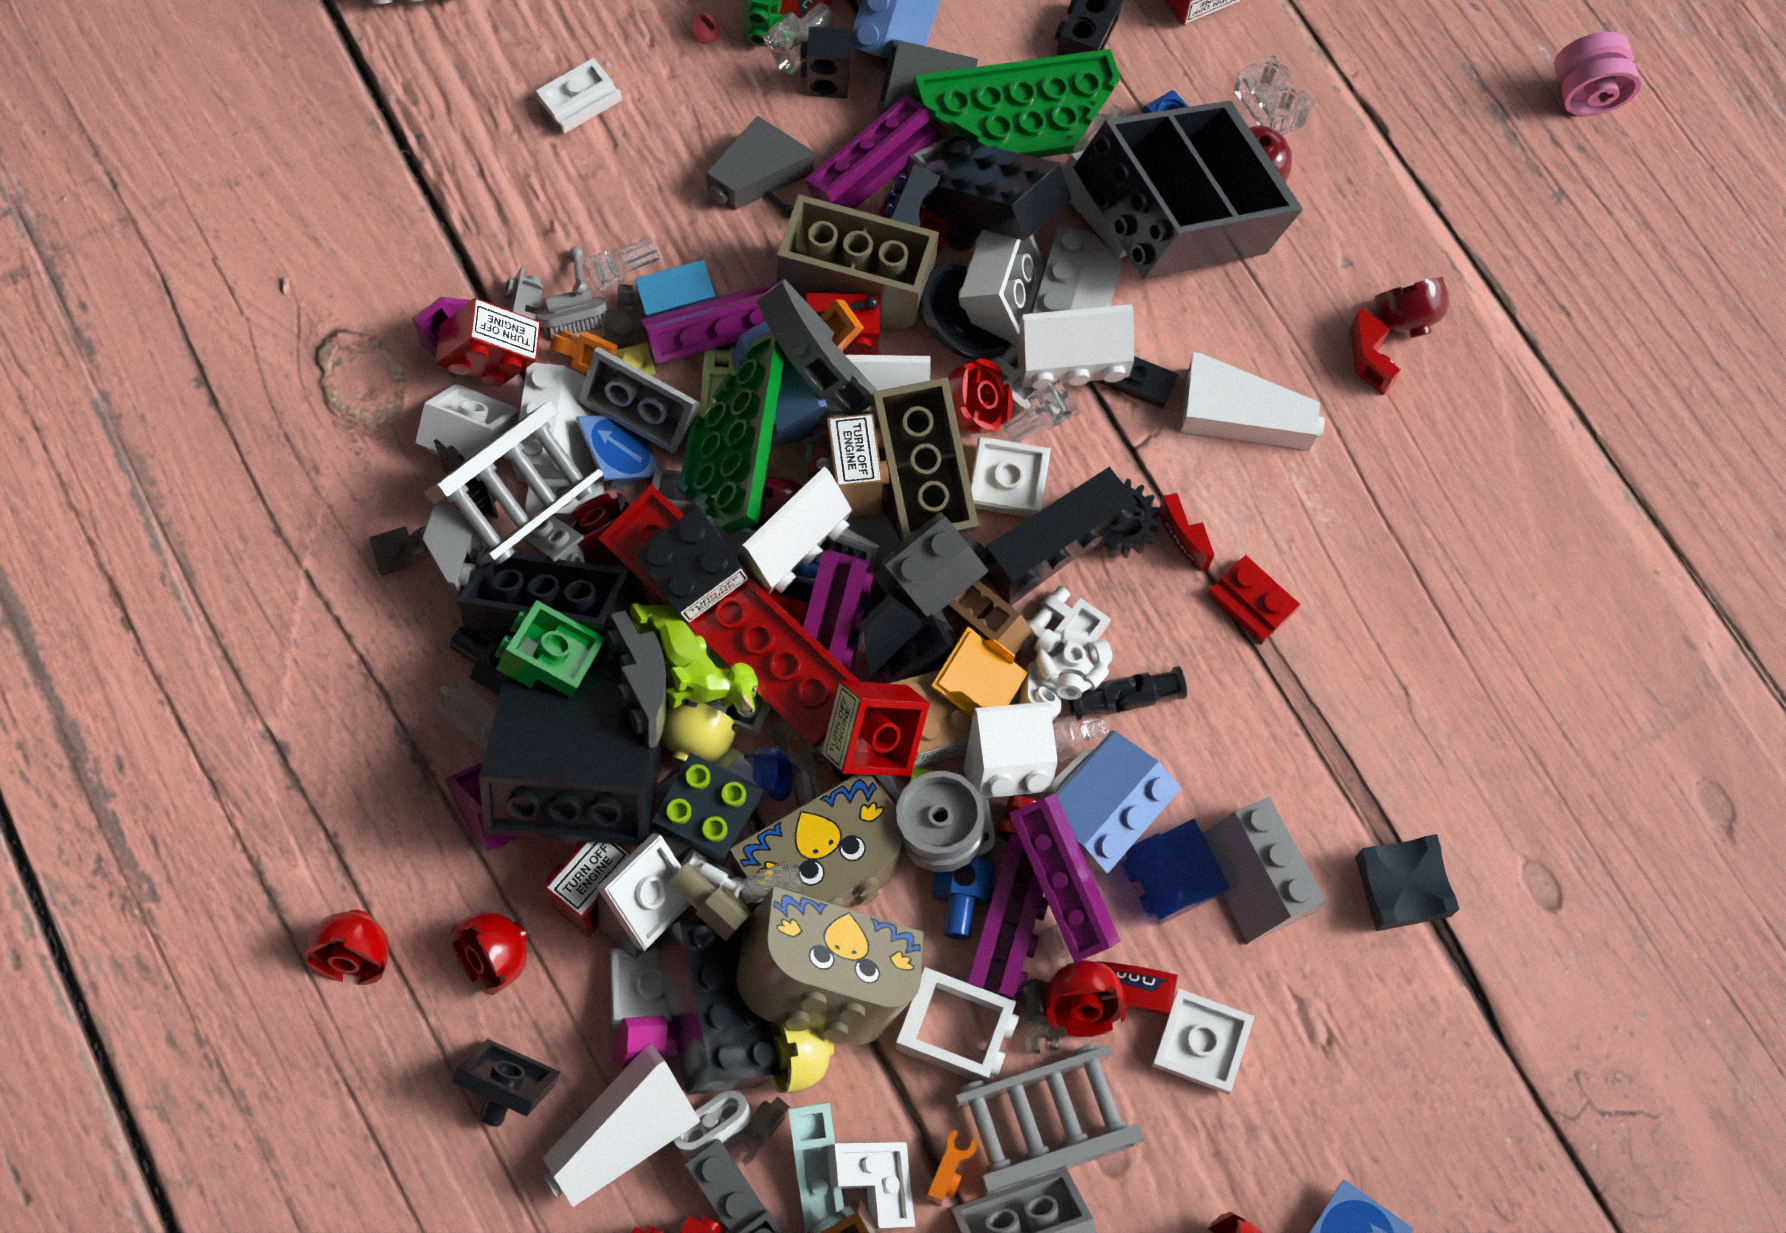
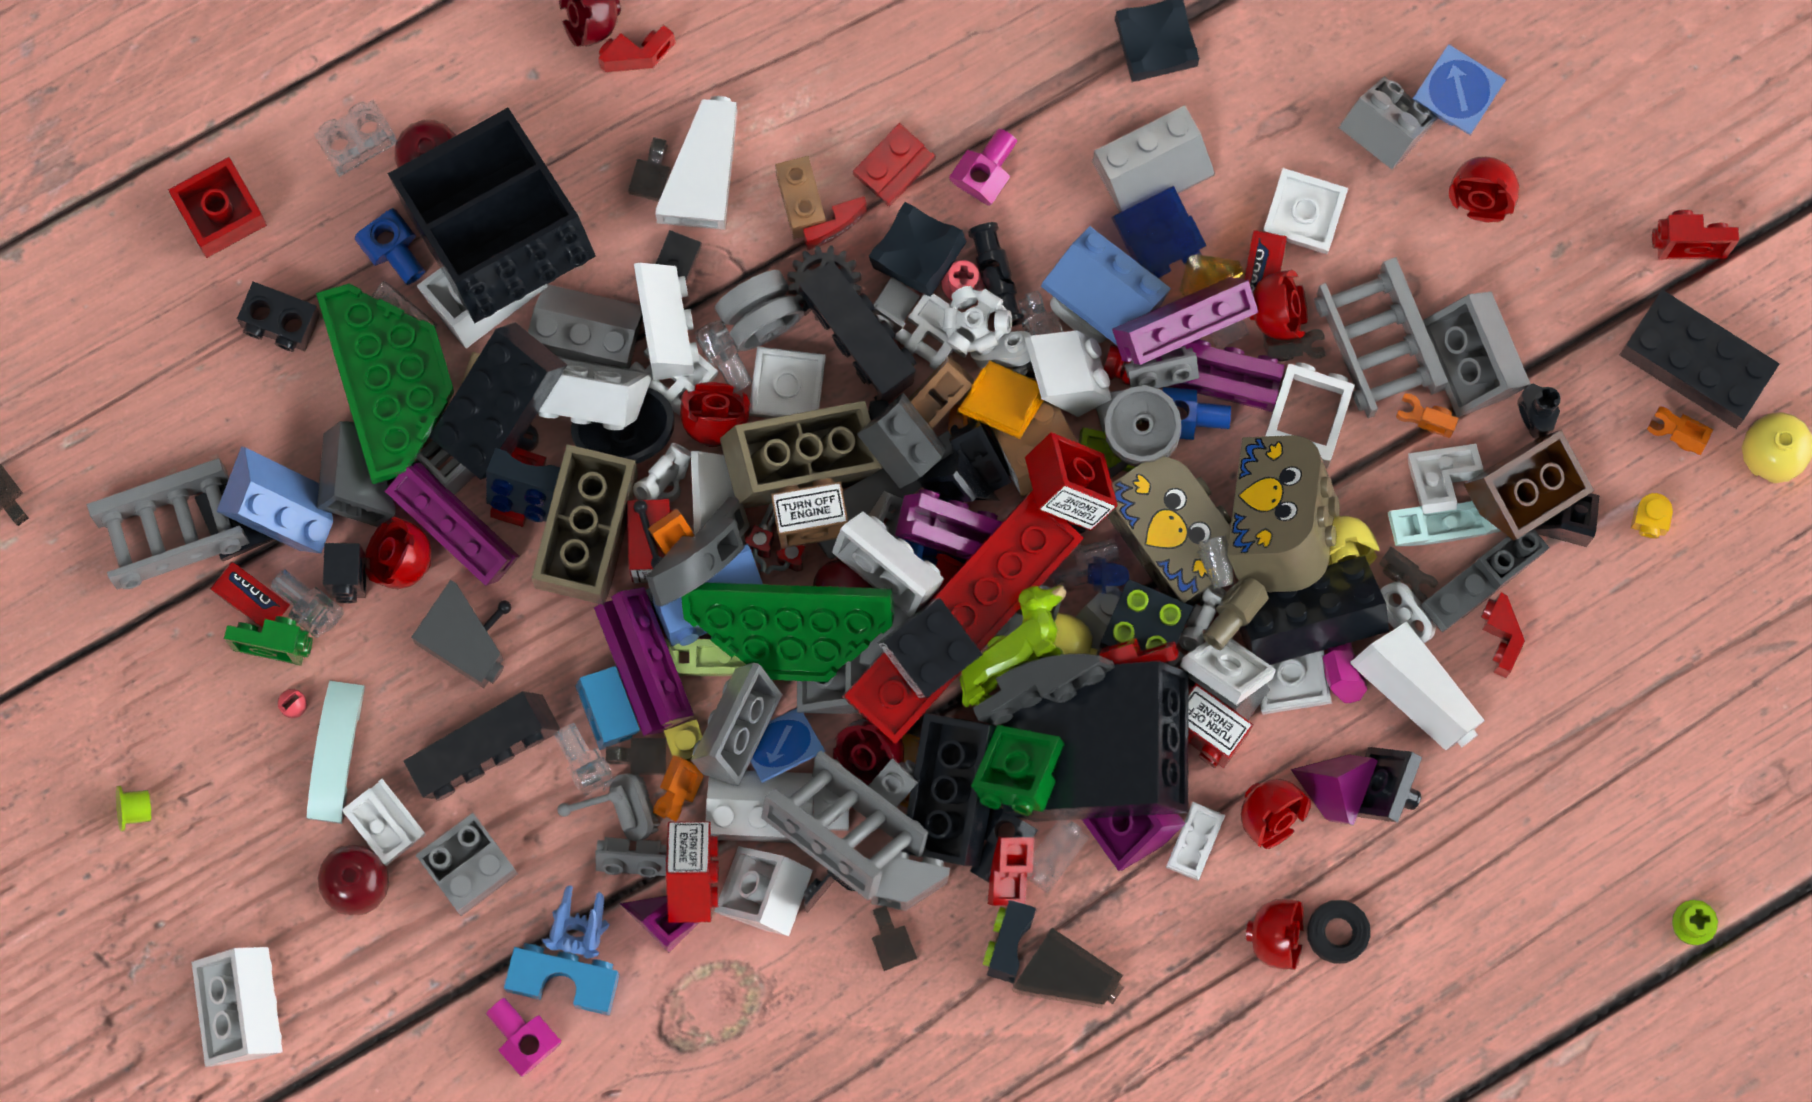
camera: 90 degrees left, 10 degrees up
(332, 1002) = (1345, 911): none -> black tyre
(337, 720) = (1068, 974): none -> clear smoke slope
(352, 198) = (516, 1030): none -> dark pink piece
(376, 652) = (1011, 925): none -> black brick
(393, 264) = (532, 969): none -> dark azure arch
(430, 253) = (563, 922): none -> medium blue piece
(455, 663) = (1009, 870): none -> slope
(470, 866) = (1195, 841): none -> white plate
(518, 1031) = (1337, 785): none -> magenta slope
(523, 66) = (353, 880): none -> dark red cylinder
(524, 158) = (466, 864): none -> light grey slope
(646, 179) = (482, 745): none -> black wedge
(658, 55) = (334, 751): none -> light aqua slope
(666, 778) = (1130, 652): none -> red slope
(840, 113) = (398, 554): none -> red cylinder
(912, 342) = (664, 474): none -> white piece
(1009, 866) = (1174, 368): none -> light grey hinge
(1087, 441) = (759, 310): none -> light grey wheel
(1093, 584) = (894, 304): none -> light grey bracket
(1123, 907) = (1207, 270): none -> clear yellow wing
(1126, 659) = (960, 275): none -> coral piece
(1154, 609) = (917, 249): none -> black brick
(1217, 496) = (799, 195): none -> medium nougat brick
(1241, 357) = (651, 176): none -> clear smoke plate
(1257, 694) = (989, 162): none -> dark pink piece
(1313, 1146) = (1387, 122): none -> light grey slope

